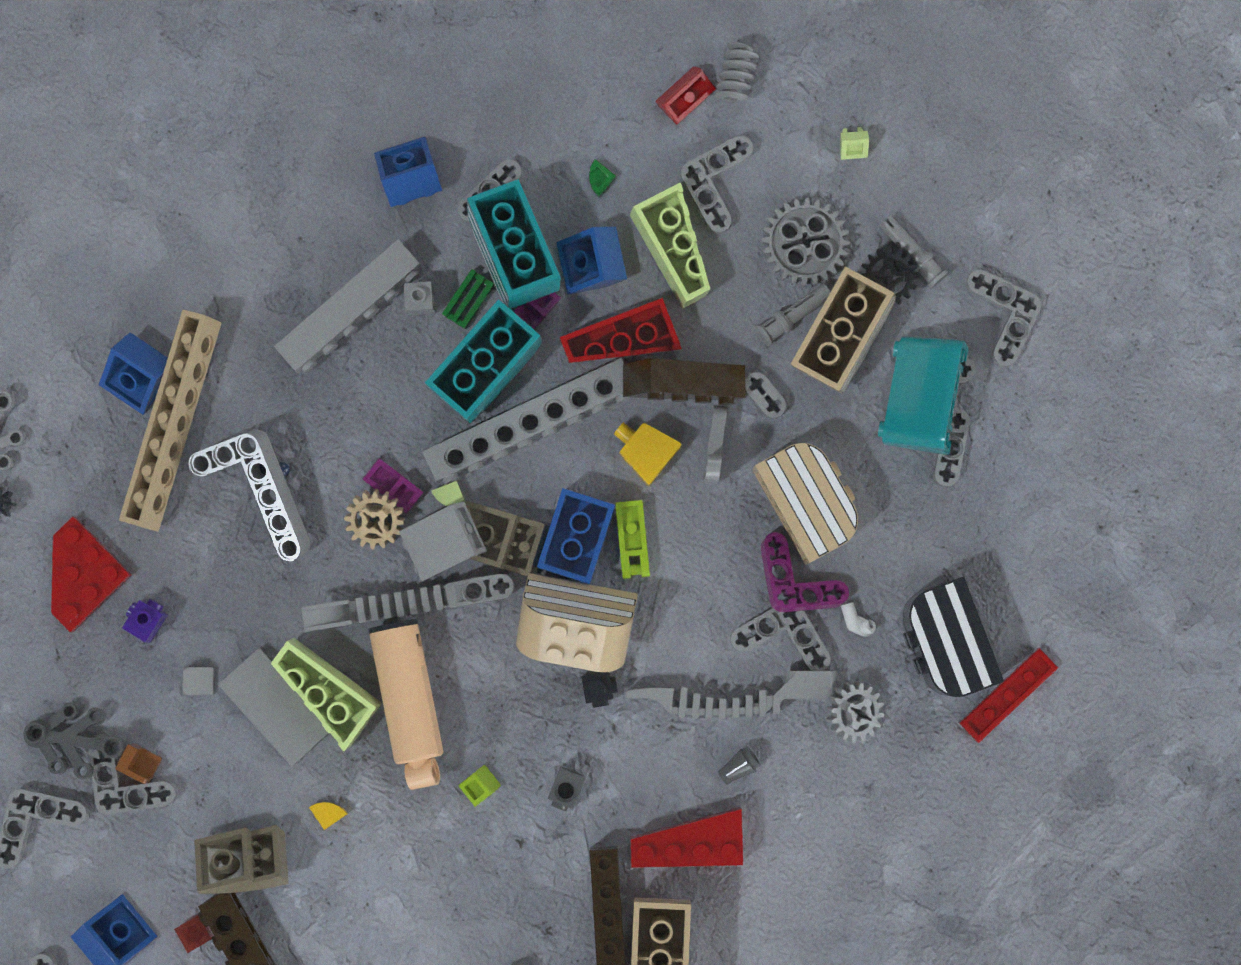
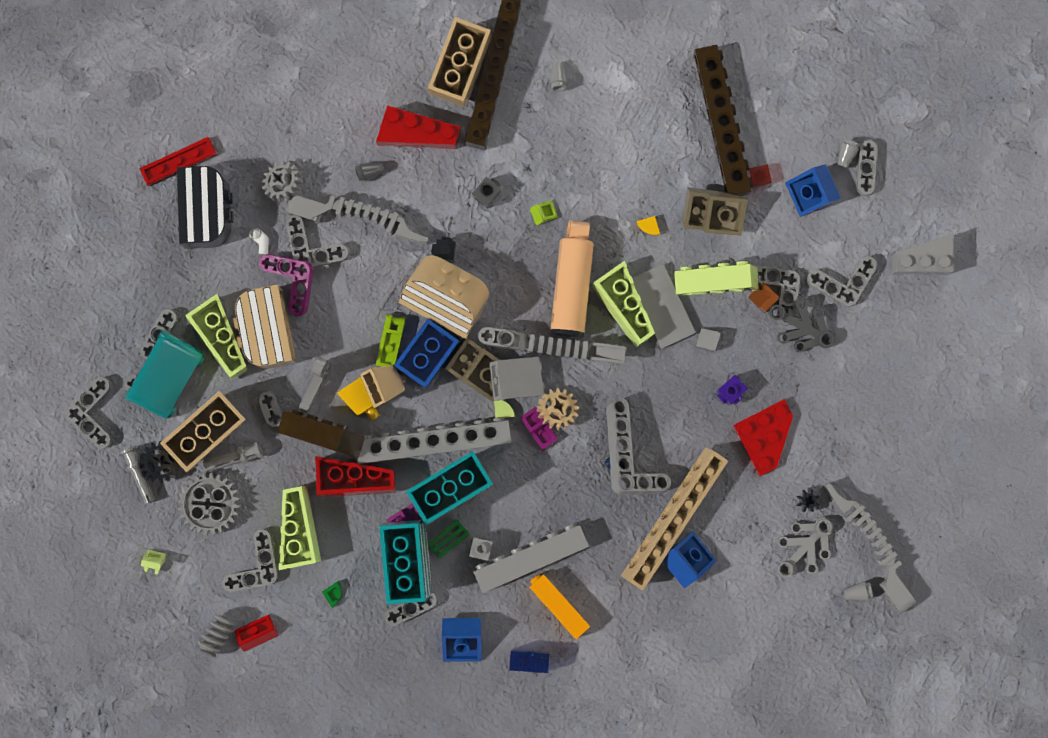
camera: 165 degrees left, 0 degrees up
(210, 765) = (716, 279): none -> yellowish green wedge
(291, 256) = (558, 605): none -> light orange brick
(308, 171) = (529, 661): none -> clear blue brick
(591, 259) = (356, 538): blue slope -> none
(620, 474) = (383, 383): none -> tan torso
(874, 474) = (215, 331): none -> yellowish green wedge

